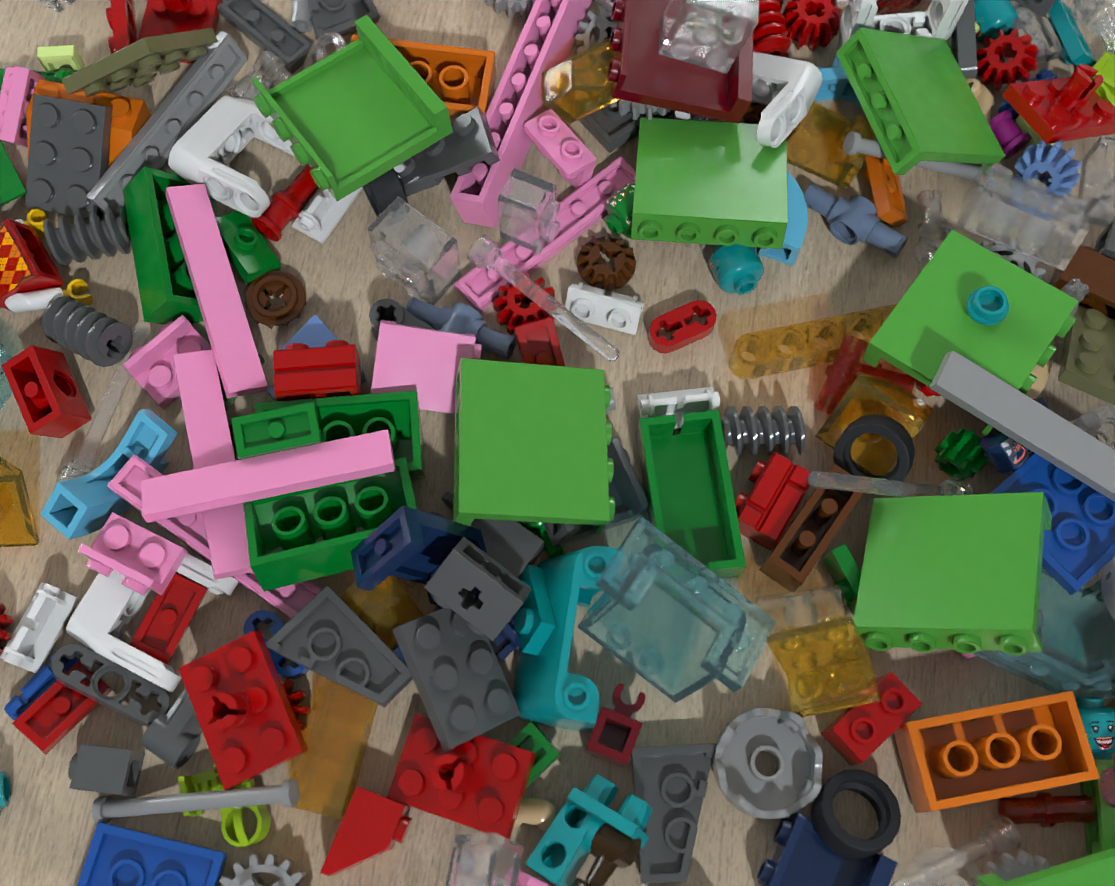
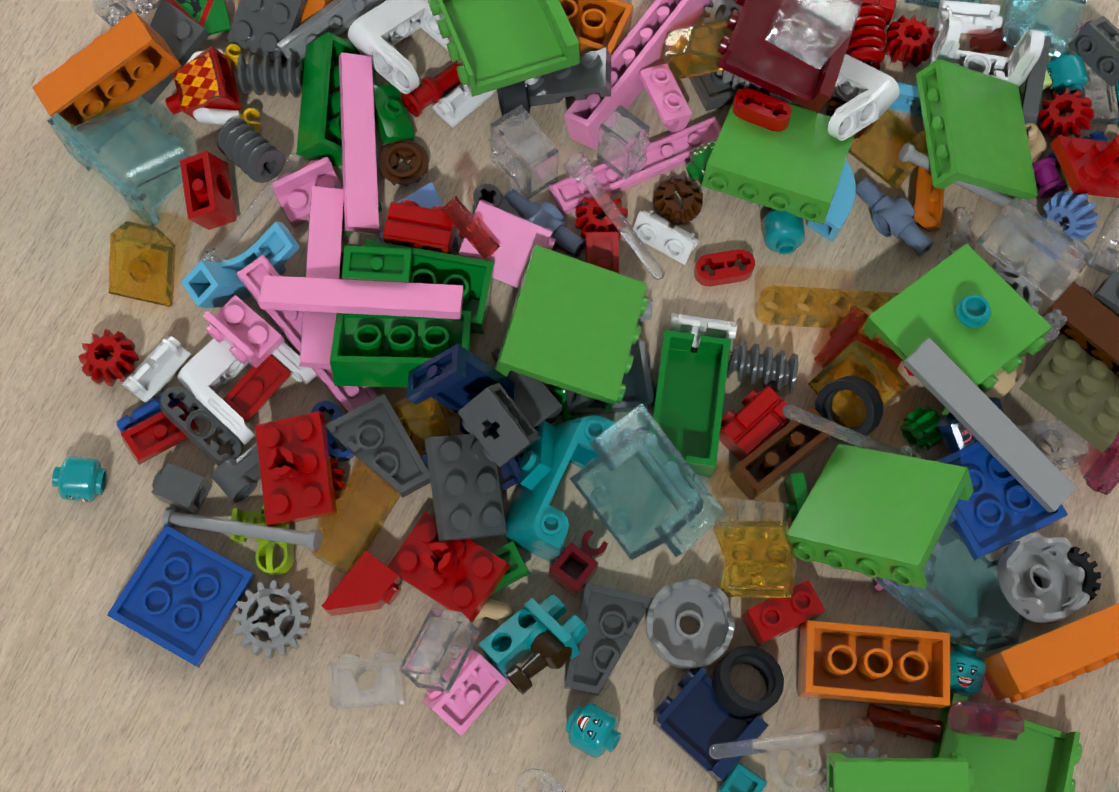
camera: 15 degrees right, 0 degrees up
(377, 357) = (470, 227): none -> clear red pin
(675, 135) = (762, 109): none -> red beam

